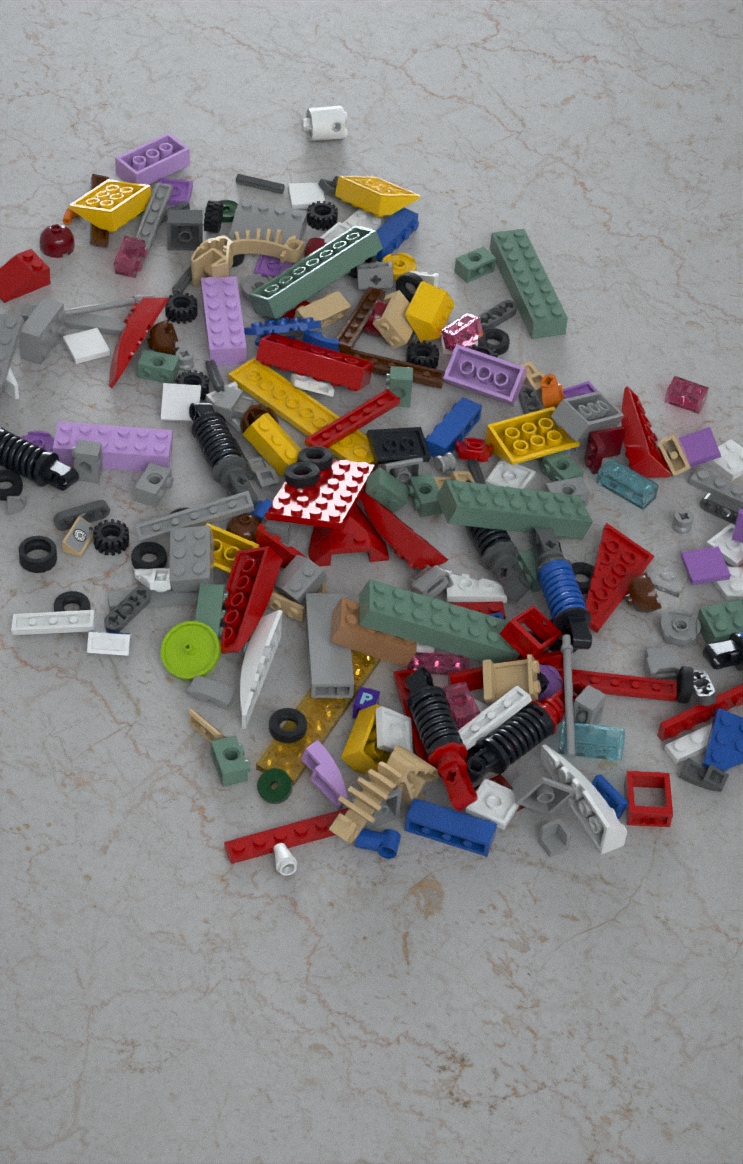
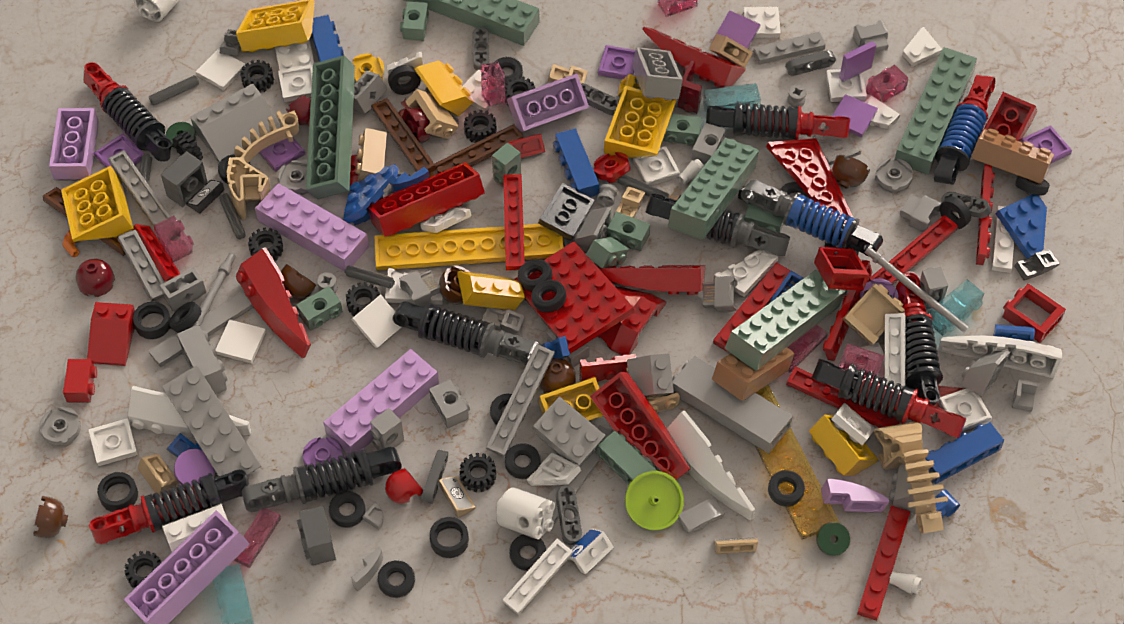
camera: 45 degrees left, 10 degrees up
(48, 499) = (402, 486): none -> red helmet
(50, 281) = (149, 308): none -> black tyre
(71, 302) = (185, 317): none -> black tyre
(90, 256) = (142, 264): none -> light grey plate
(93, 286) = (183, 288): none -> light grey brick
(96, 578) = (525, 513): none -> white cylinder
(104, 268) = (157, 252): none -> red plate
(182, 254) = (205, 196): none -> black slope
(209, 169) = (128, 113): none -> black piece
(230, 761) = (789, 561): sand green brick -> none
(365, 698) = (802, 421): dark purple brick -> none
(433, 391) = (529, 145): none -> red plate
(551, 391) = (602, 76): orange piece -> none
(636, 518) = (788, 122): none -> black piece

